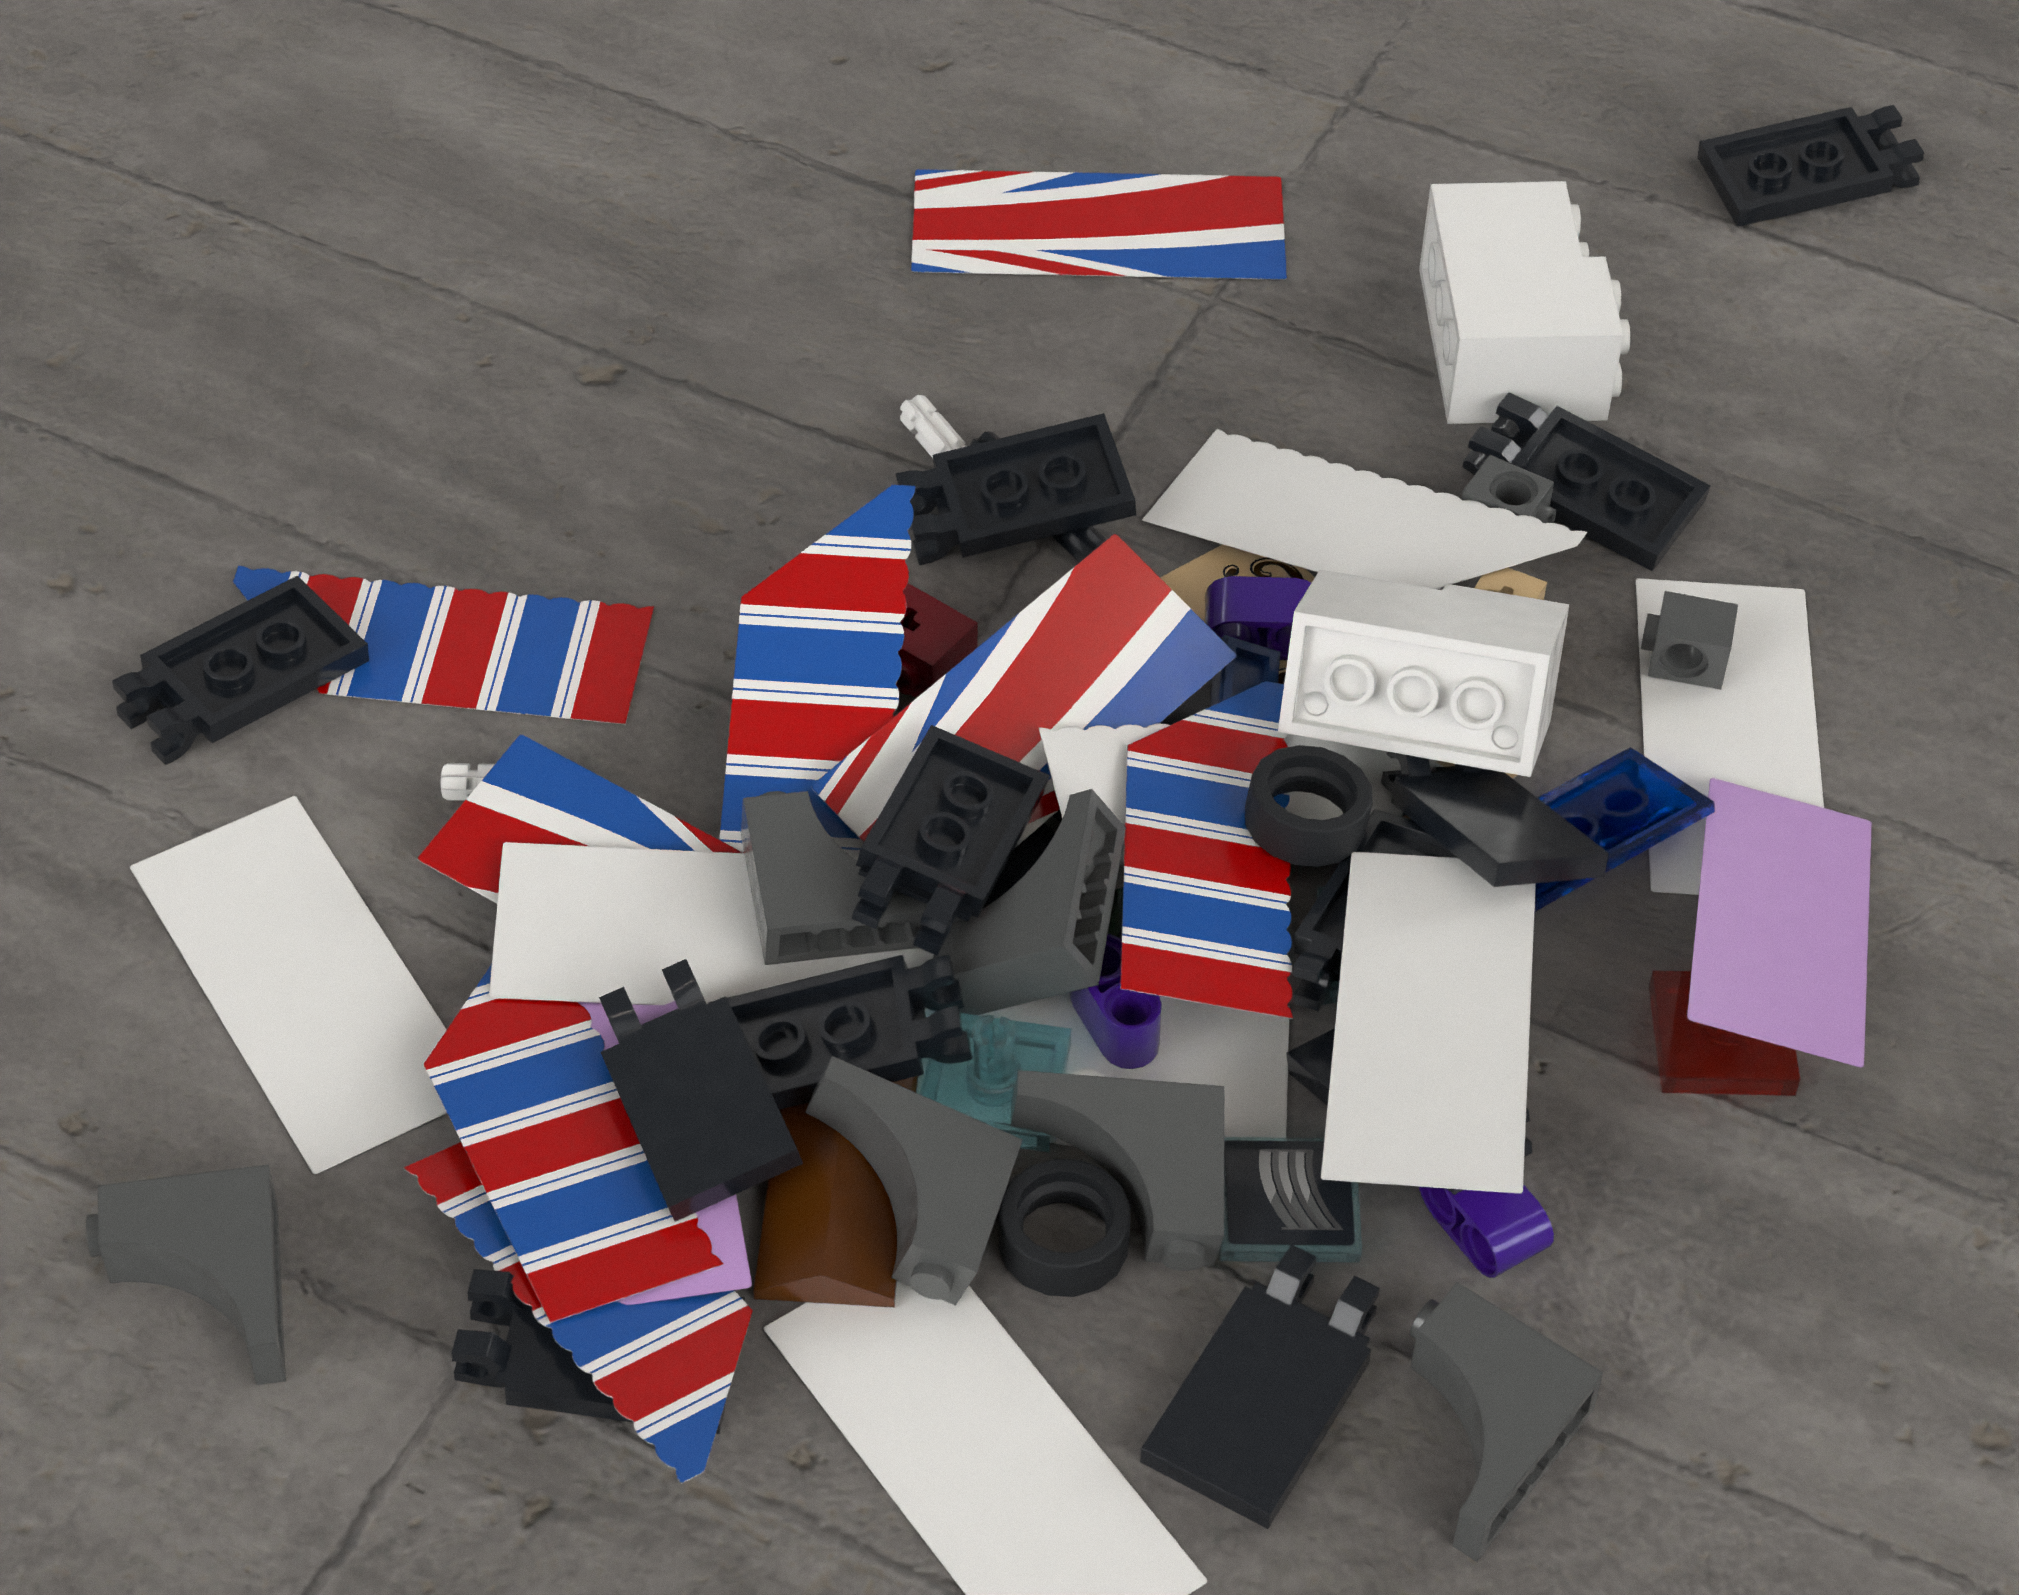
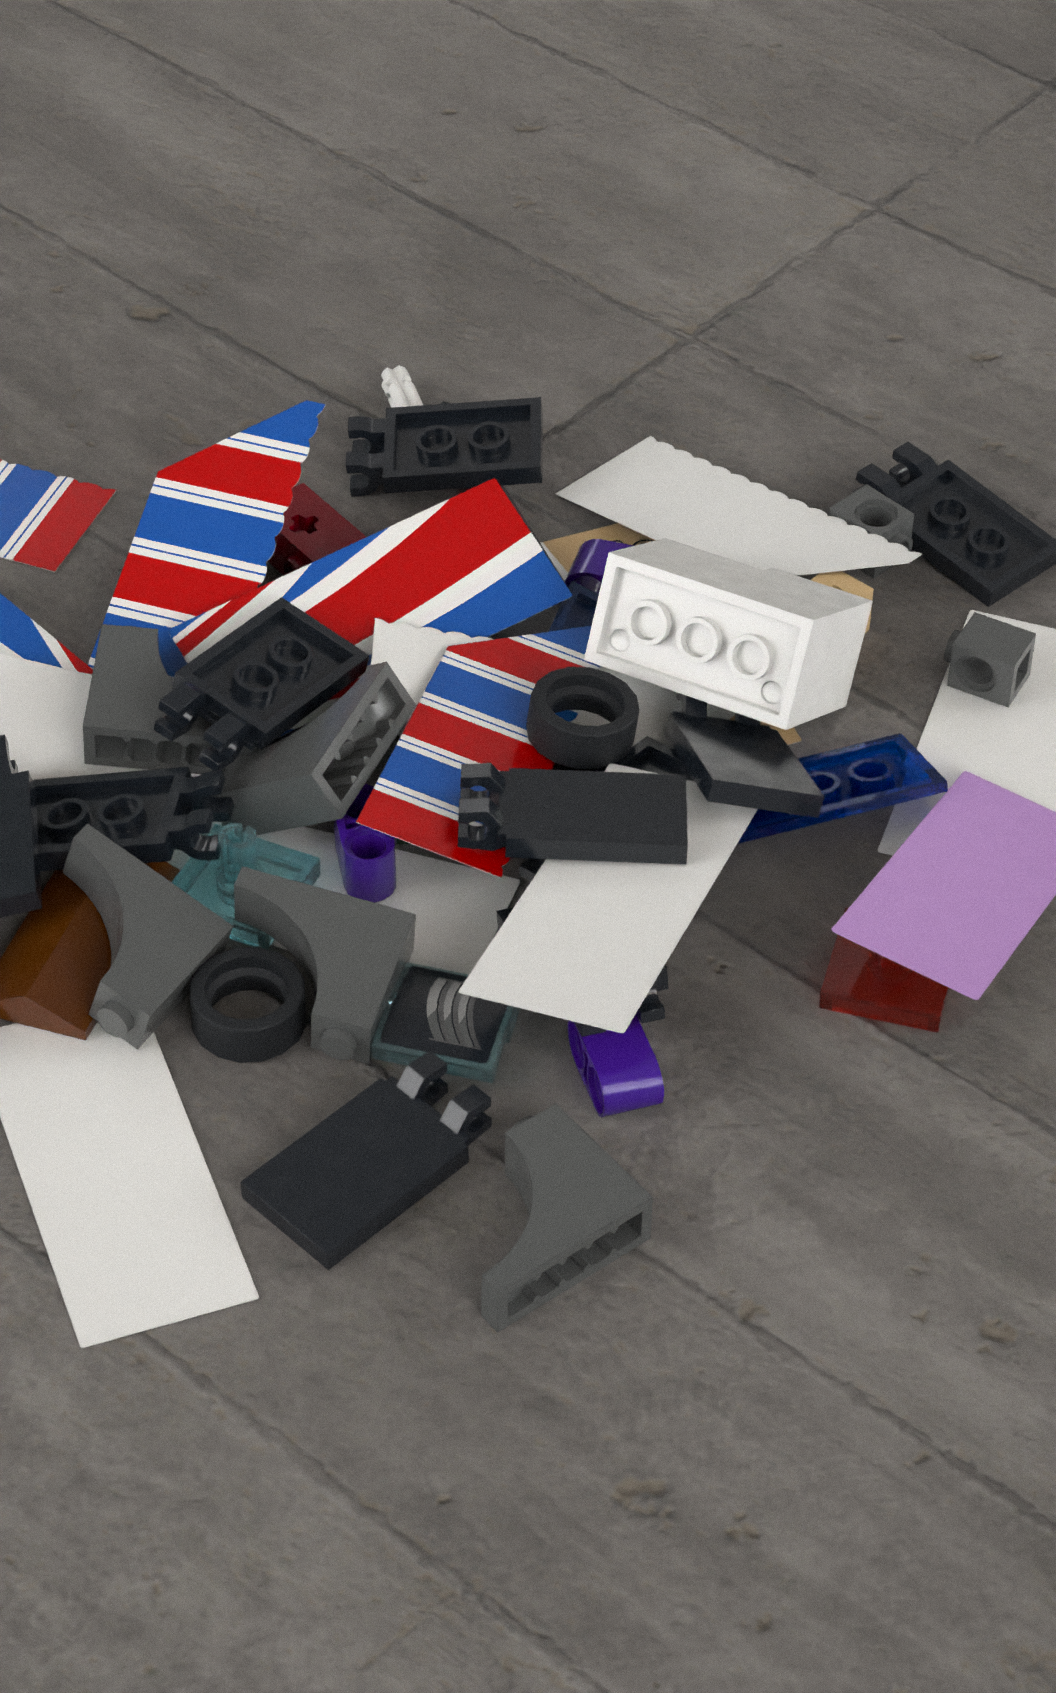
camera: 15 degrees right, 5 degrees down
(1098, 224) = (617, 267): sticker -> none
(1354, 930) = (574, 814): none -> black tile
(1518, 302) = (944, 371): white piece -> none

